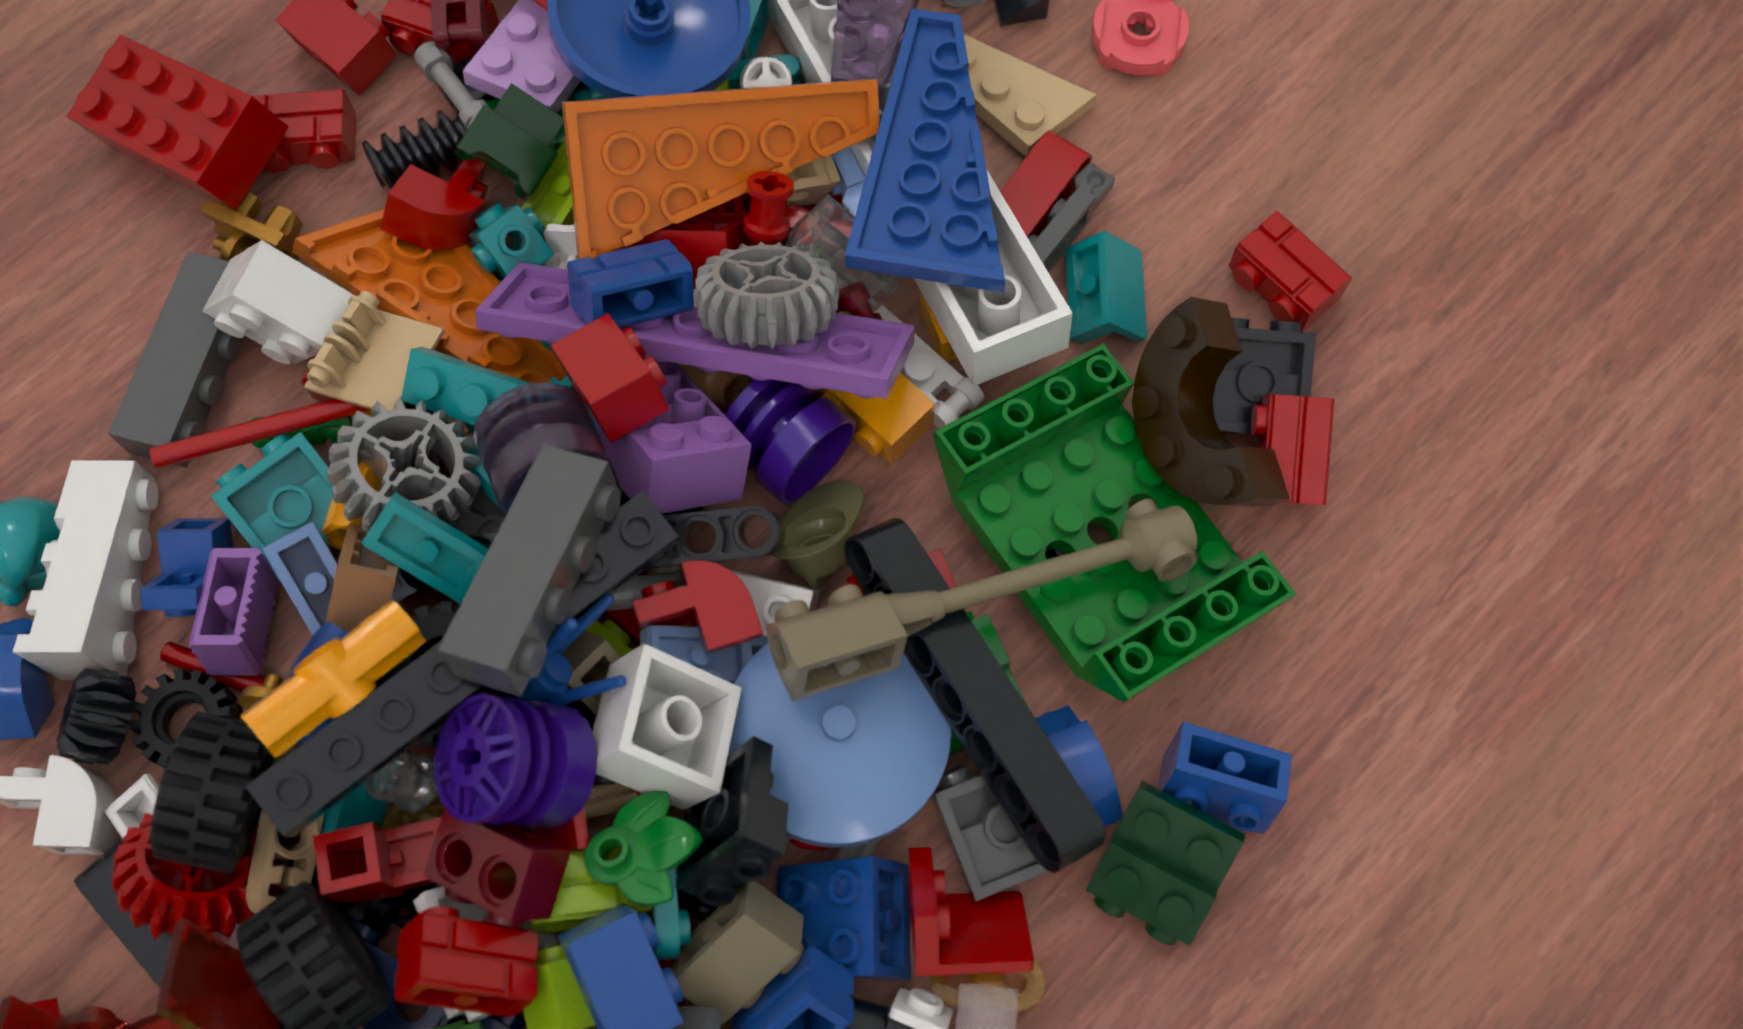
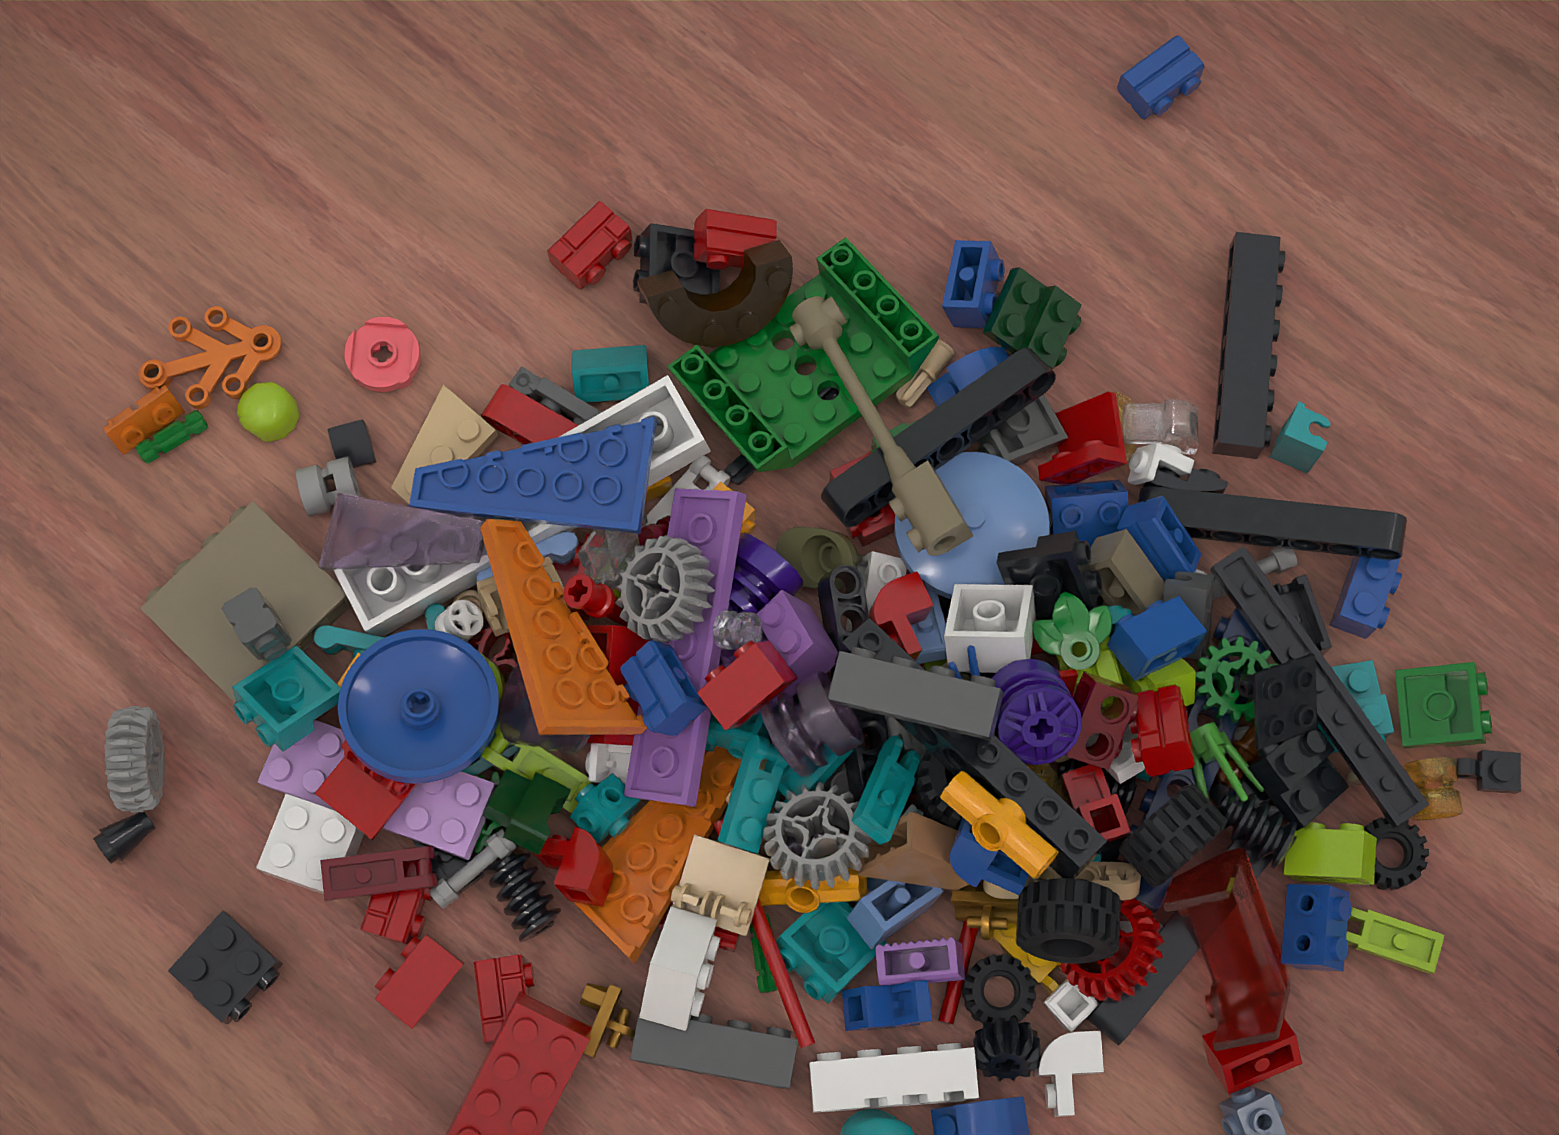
camera: 95 degrees left, 5 degrees up
(688, 390) = (735, 629): none -> clear wheel
(1088, 703) = (926, 374): none -> tan axle

